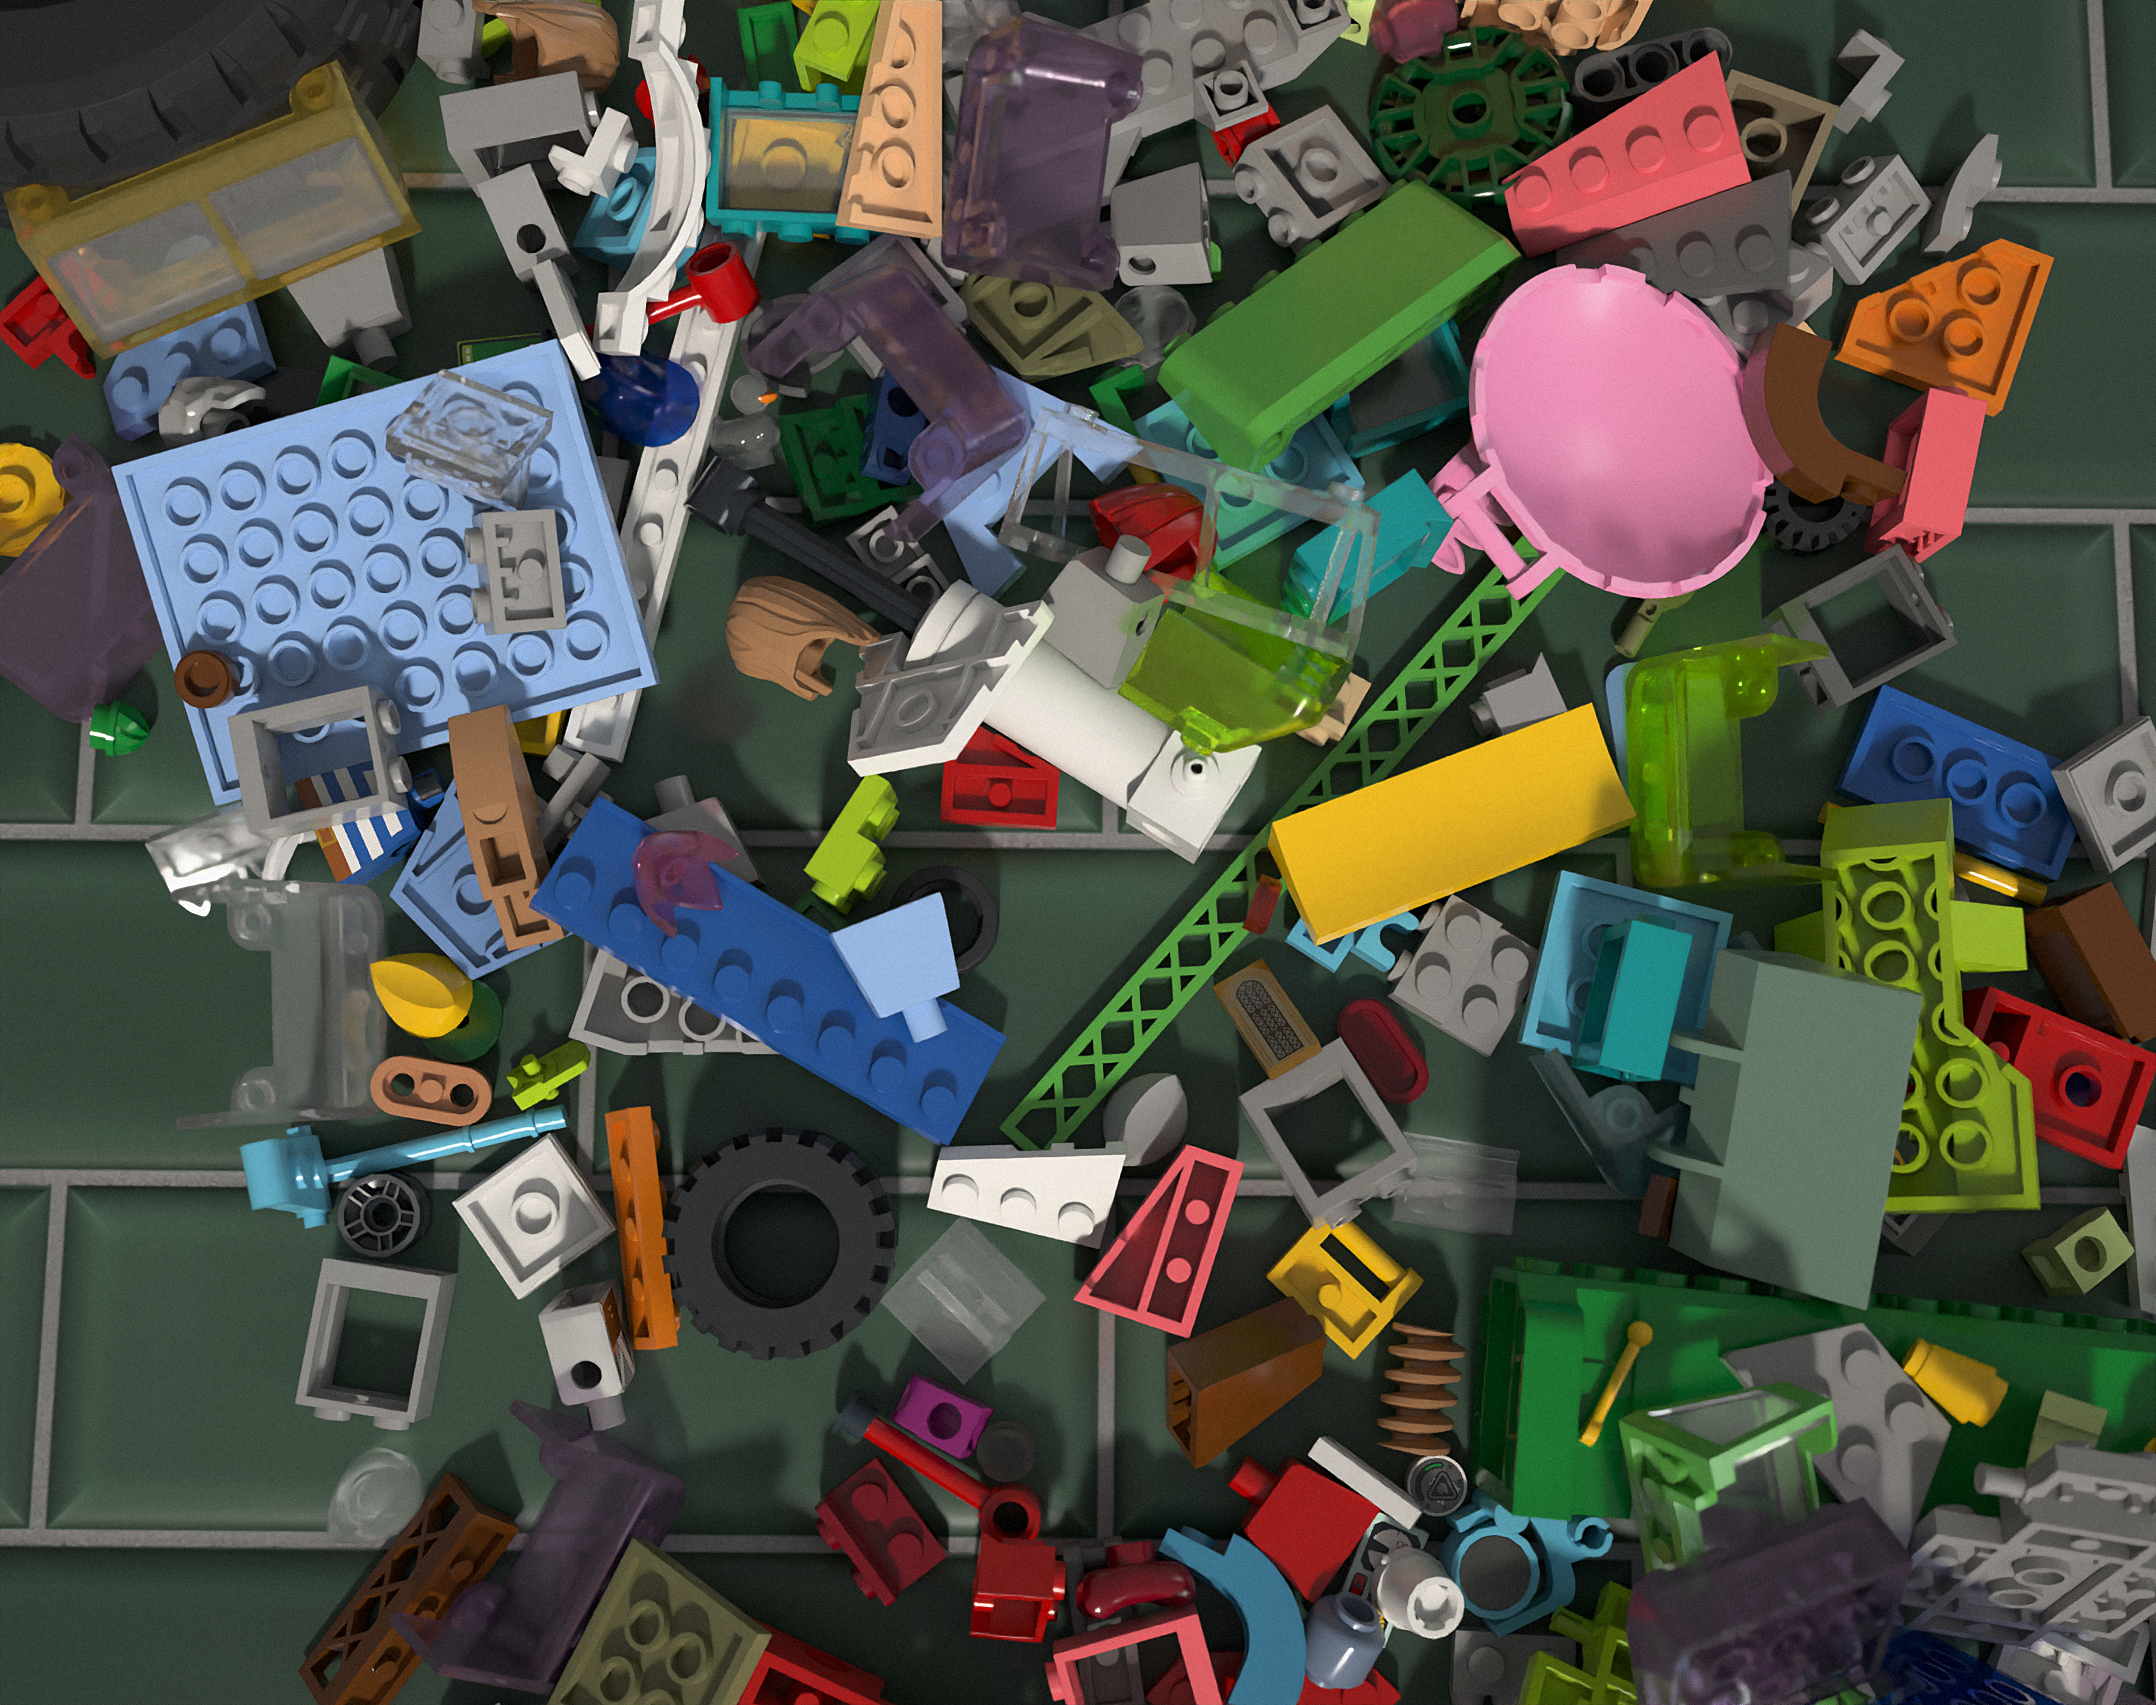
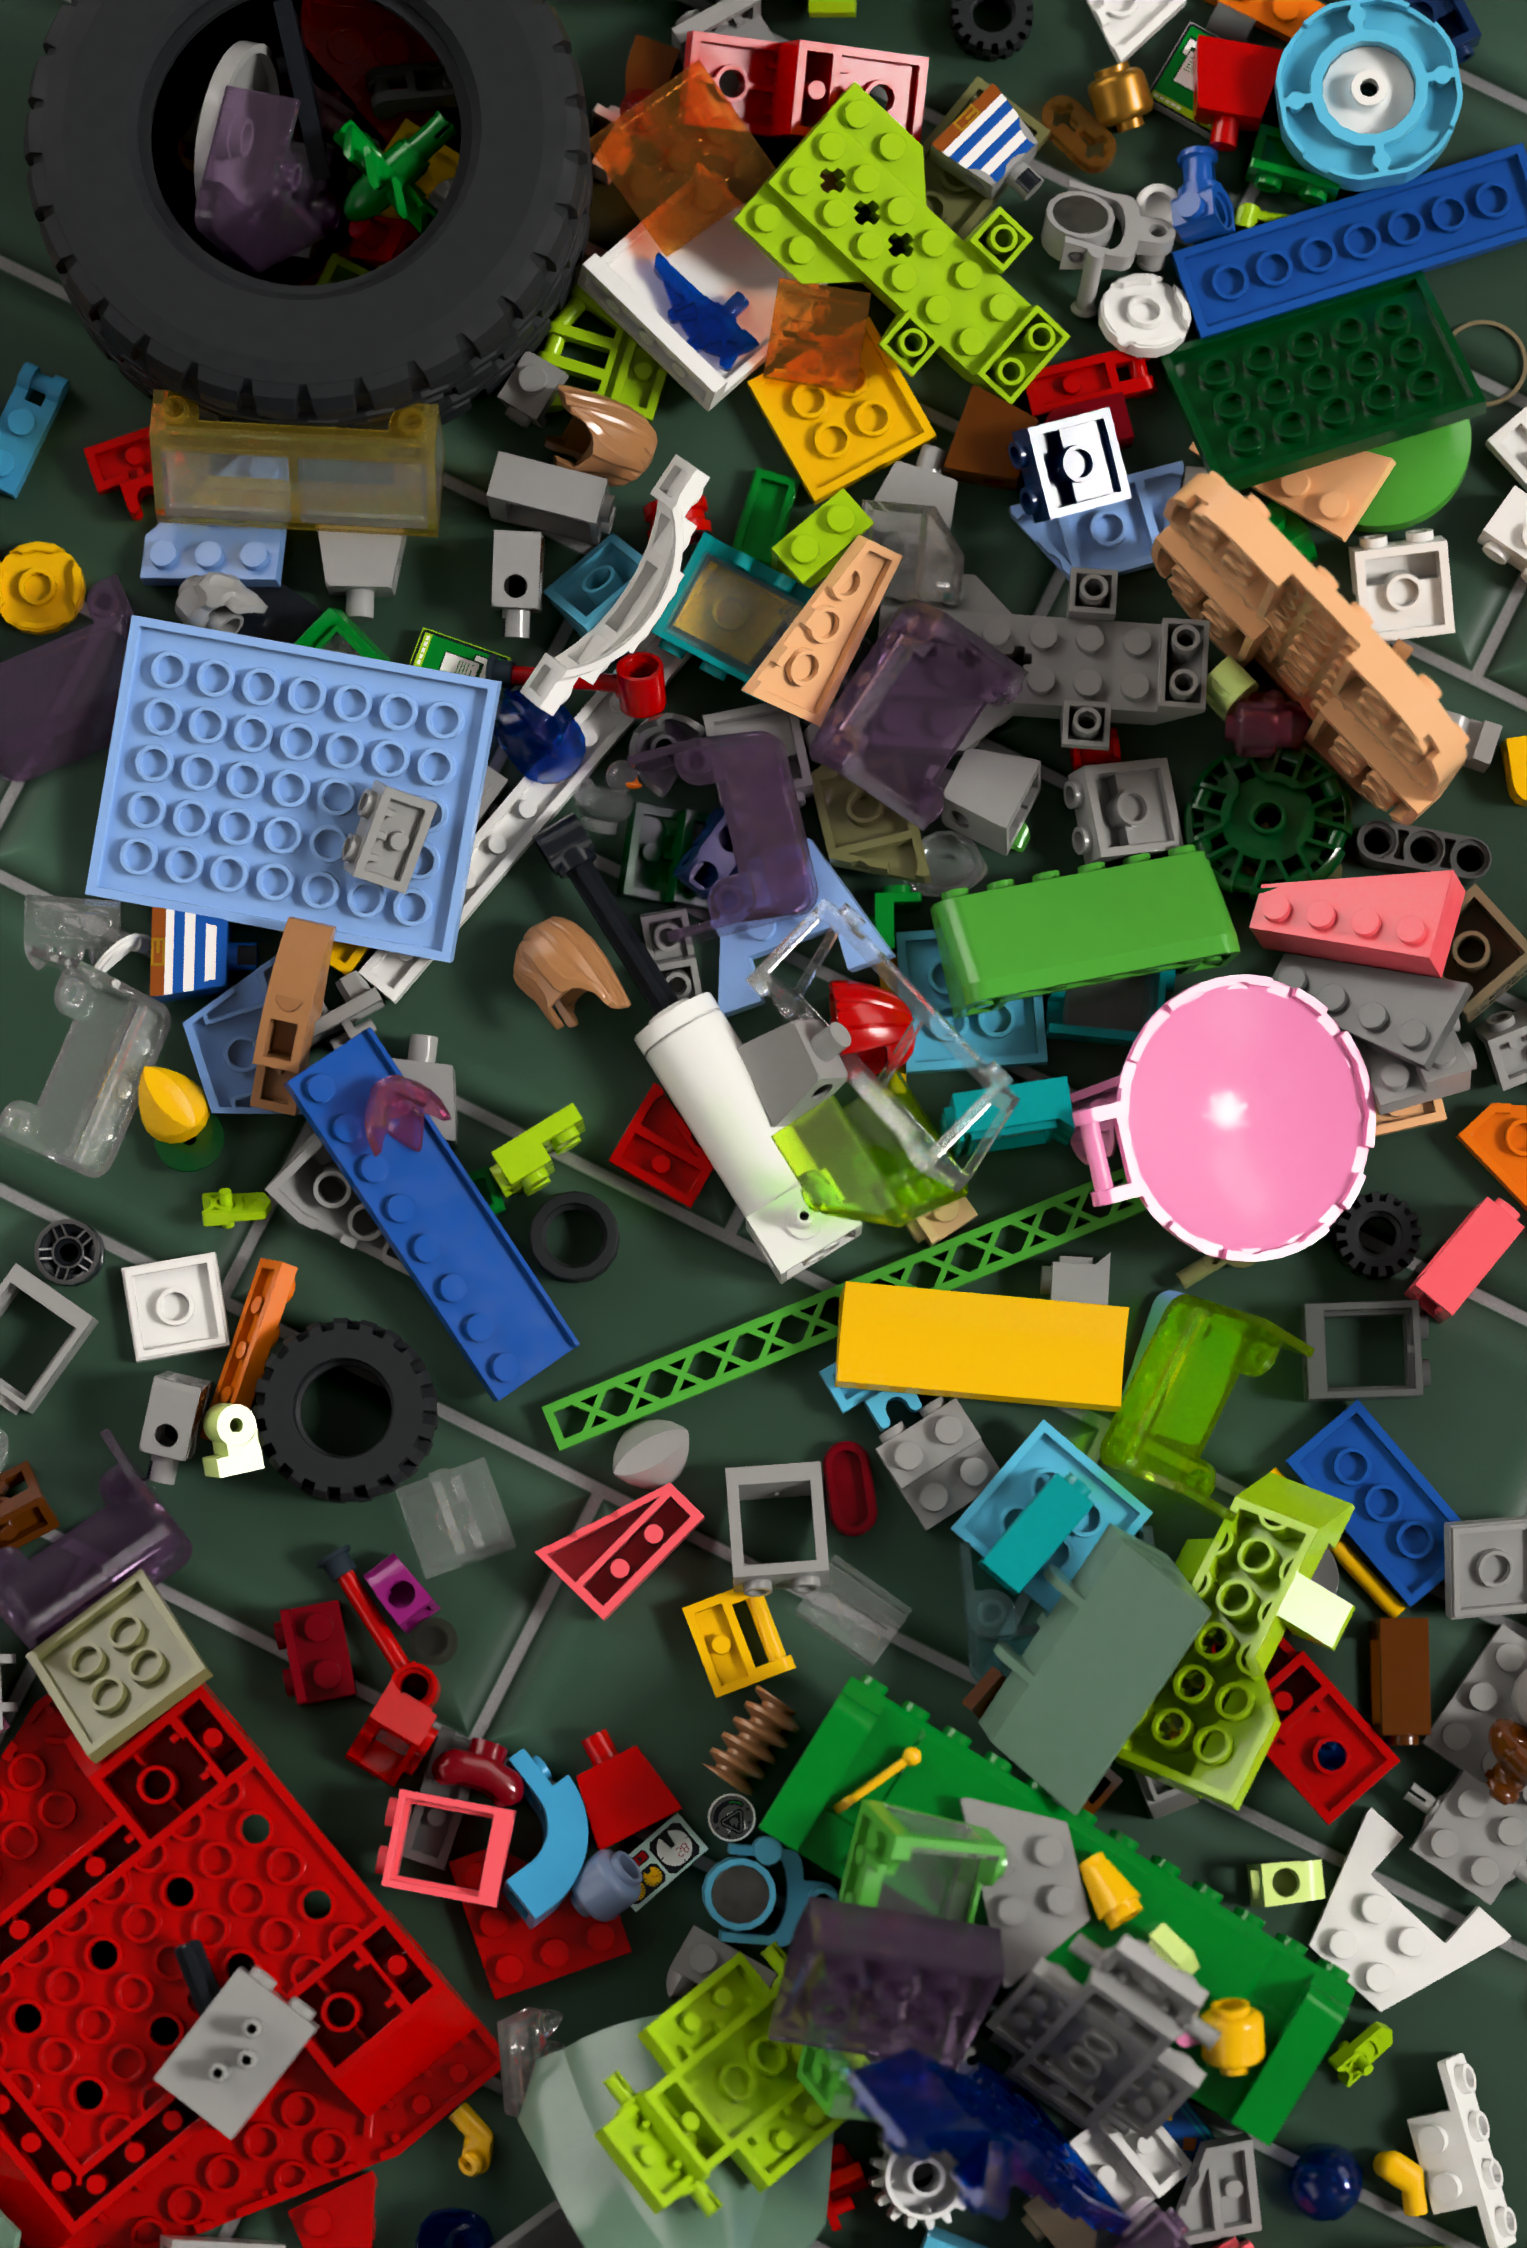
camera: 25 degrees right, 0 degrees up
(118, 728) = (40, 802): green plate -> none
(206, 679) = (126, 801): reddish brown tile -> none
(261, 771) = (135, 893): light grey window -> none
(296, 1178) = (28, 1195): medium azure piece -> none
(433, 1090) = (146, 1178): nougat plate -> none
(471, 439) = (404, 727): clear bracket -> none
(566, 319) = (512, 662): white tile -> none
(609, 154) = (606, 543): white bracket -> none
(669, 1341) = (234, 1441): none -> leg
(903, 962) = (529, 1252): light blue torso -> none
(935, 709) = (639, 1081): white wing -> none
(1041, 1192) = (549, 1467): white wing -> none
(1239, 1376) = (627, 1667): reddish brown slope -> none
(1262, 904) = (812, 1338): clear red tile -> none
(1267, 1019) = (774, 1422): tile -> none
(1367, 1481) = (682, 1786): white tile -> none
(1416, 1593) = (676, 1879): white piece -> none
(1788, 426) = (1371, 1177): reddish brown arch -> none

